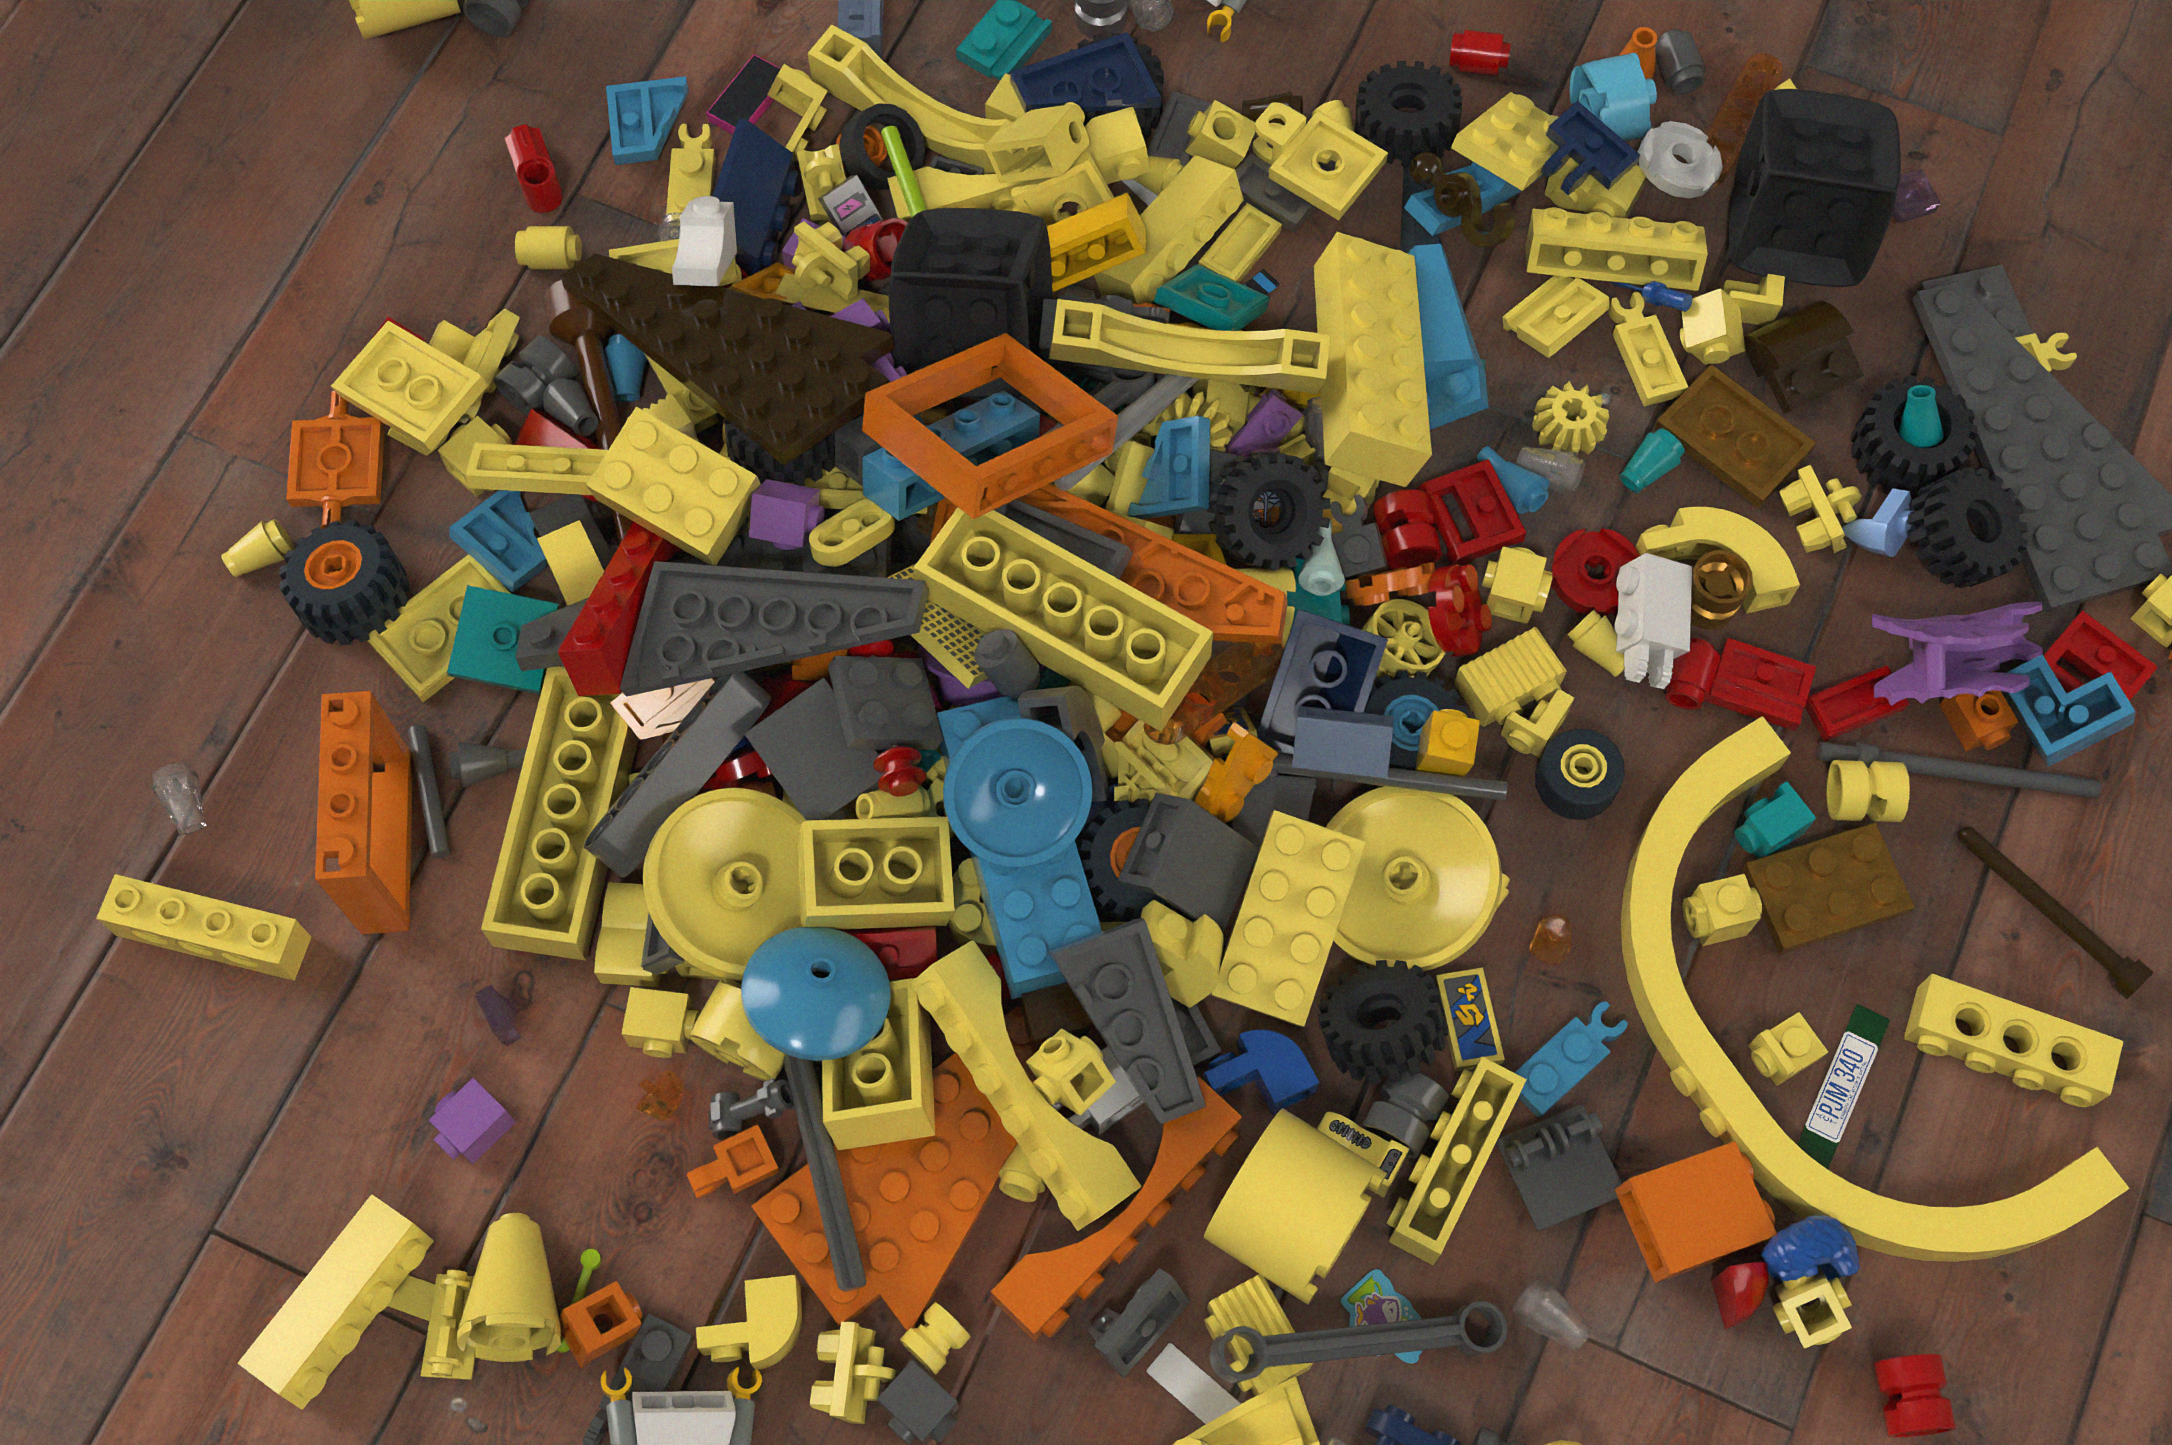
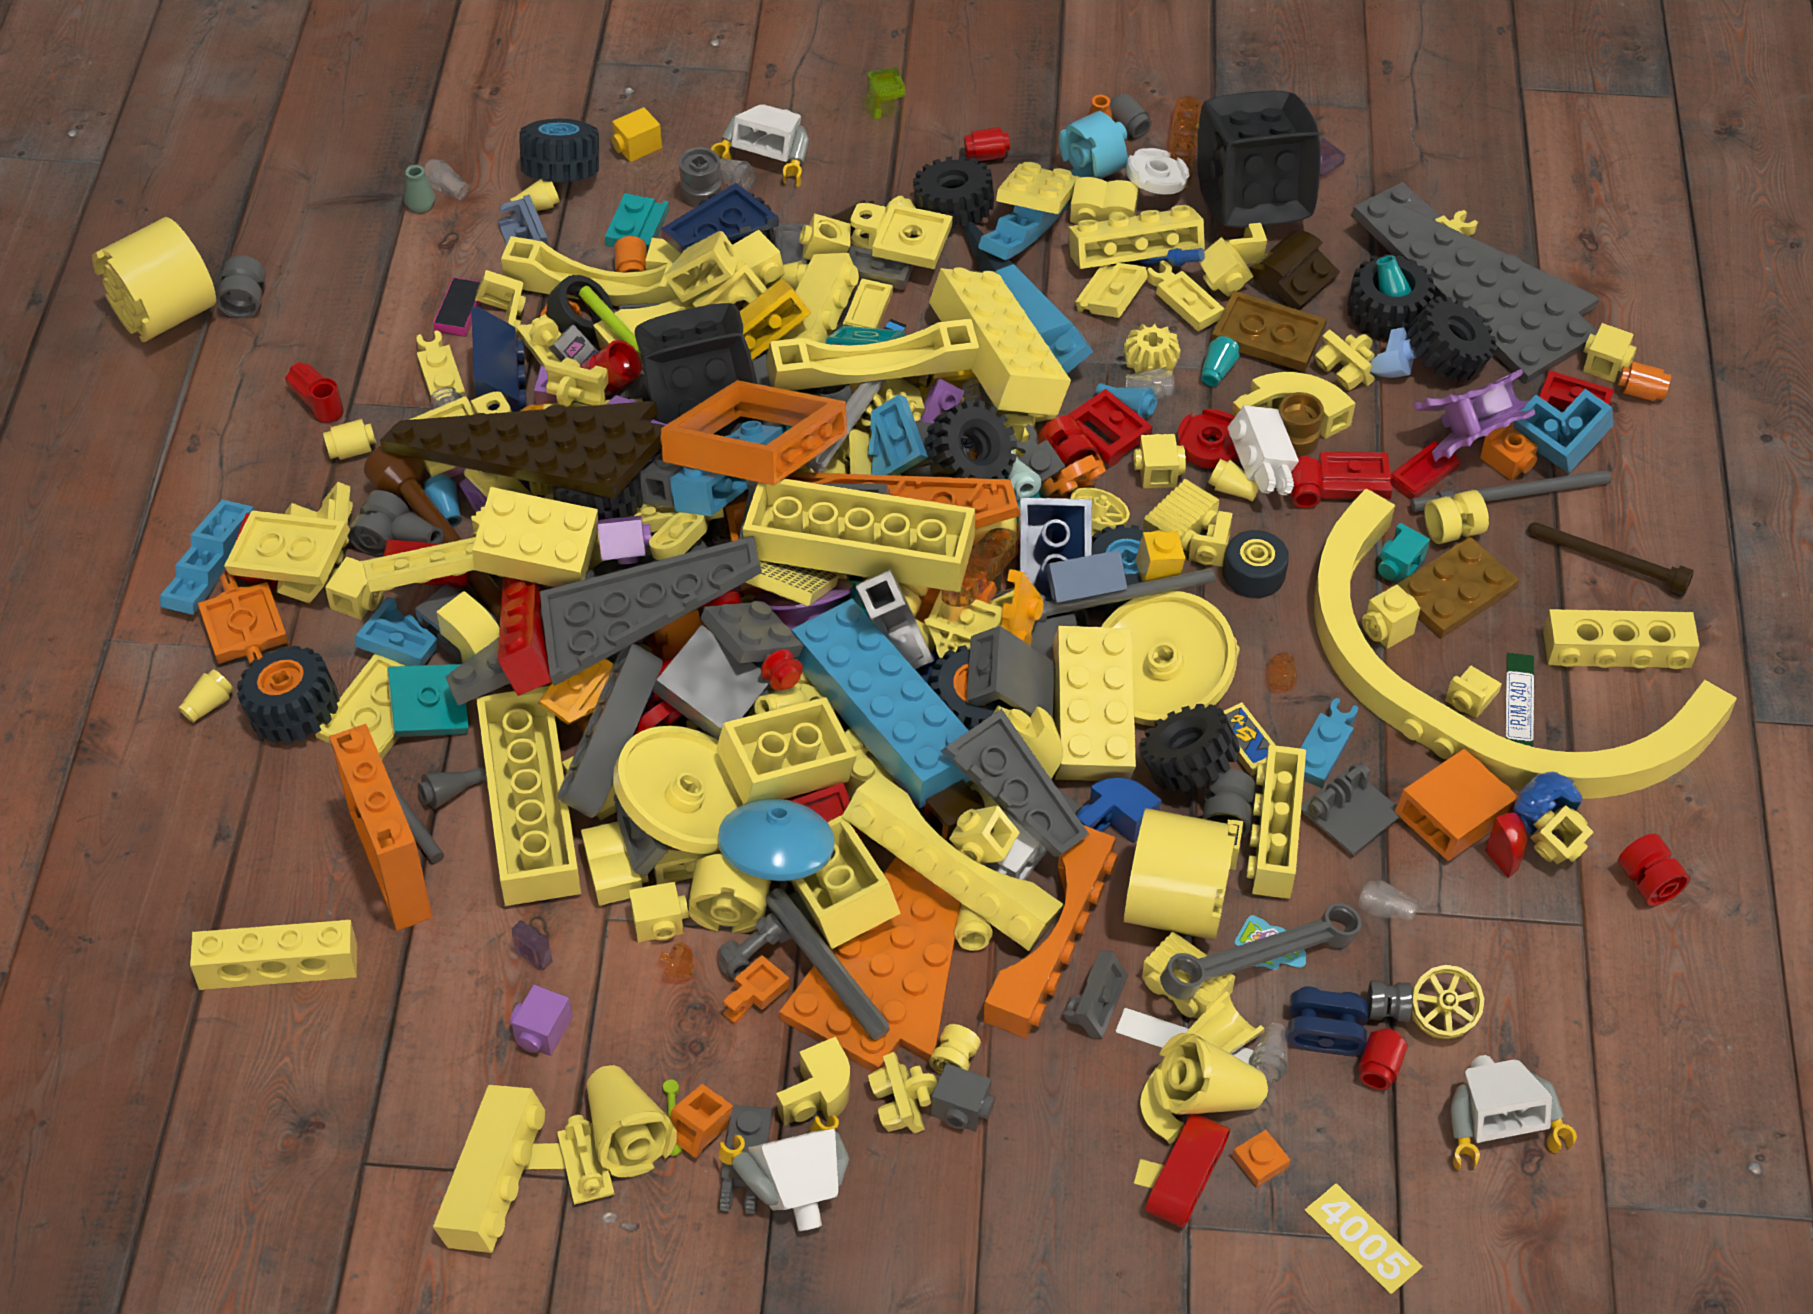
camera: 20 degrees left, 15 degrees down
(180, 795) = (213, 874): clear cone -> none
(317, 366) = (205, 560): none -> dark azure slope
(643, 117) = (385, 338): dark azure wing -> none
(705, 242) = (484, 384): white arch -> none
(974, 87) = (630, 254): none -> orange brick
(1007, 663) = (832, 577): dark grey brick -> none
(1038, 818) = (895, 637): dark azure dish -> none
(1459, 613) = (1126, 485): red plate -> none
(1460, 195) = (1017, 227): dark brown piece -> none
(1589, 144) = (1093, 174): dark blue hinge -> none

